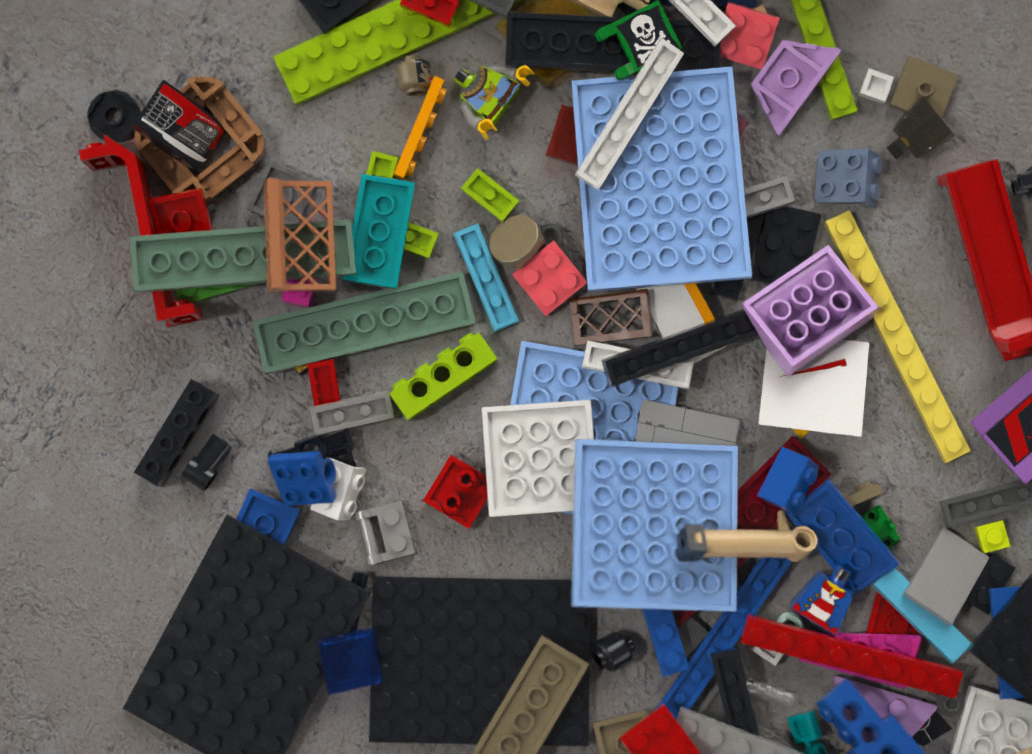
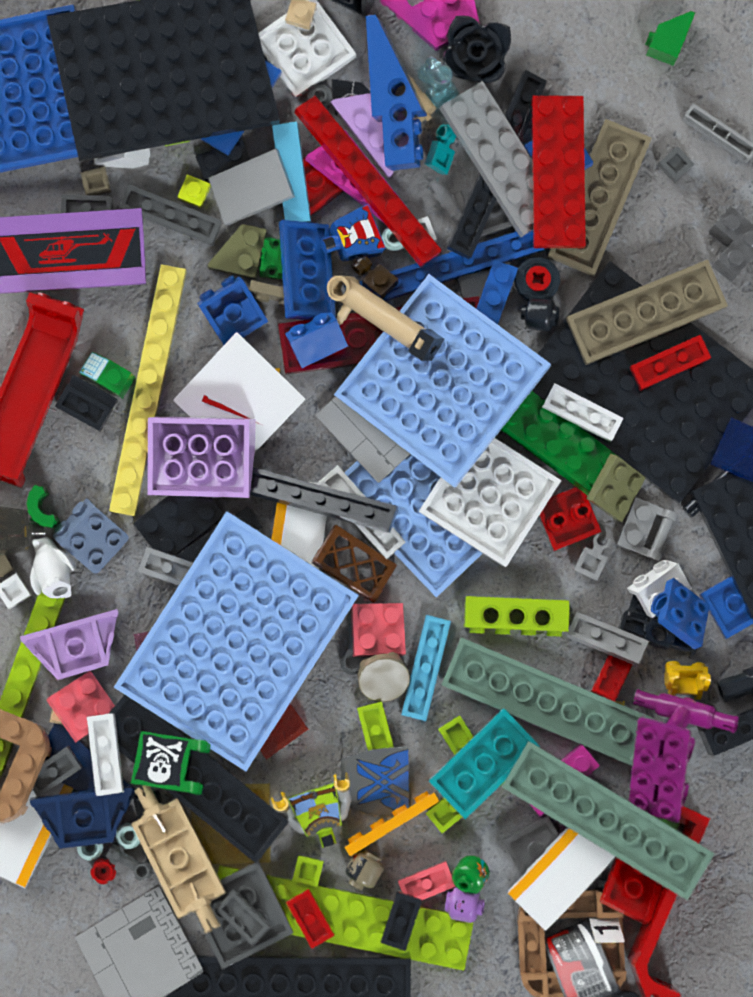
camera: 145 degrees left, 0 degrees up
(178, 170) = (606, 930): none -> white sticker
(235, 345) = (665, 750): none -> magenta plate
(245, 170) = (559, 877): none -> white slope
(259, 428) = (686, 679): none -> yellow piece
(276, 241) = (572, 815): nougat fence -> none
(311, 108) = (464, 905): none -> medium lavender head
(323, 135) = (470, 874): none -> green head
(354, 55) = (401, 921): none -> black plate
(355, 102) = (428, 881): none -> coral plate
(411, 470) = (591, 561): none -> light grey plate
(437, 546) = (616, 488): none -> olive plate
(457, 156) = (378, 780): none -> sticker
(460, 41) = (307, 870): none -> lime plate
(470, 691) = (670, 362): none -> red plate
(510, 551) = (558, 443): none -> green plate
(513, 590) = (582, 412): none -> white plate
(629, 114) = (222, 708): white plate -> none
(629, 679) = (539, 287): none -> black wheel
(775, 574) = (379, 280): none -> dark brown plate
(859, 124) = (51, 569): none -> white animal
(880, 455) = (231, 309): none -> blue plate
(910, 164) = (34, 506): none -> green piece
(910, 513) = (241, 252): none -> olive wing
(939, 285) = (86, 403): none -> black plate
(940, 322) = (107, 374): none -> green slope

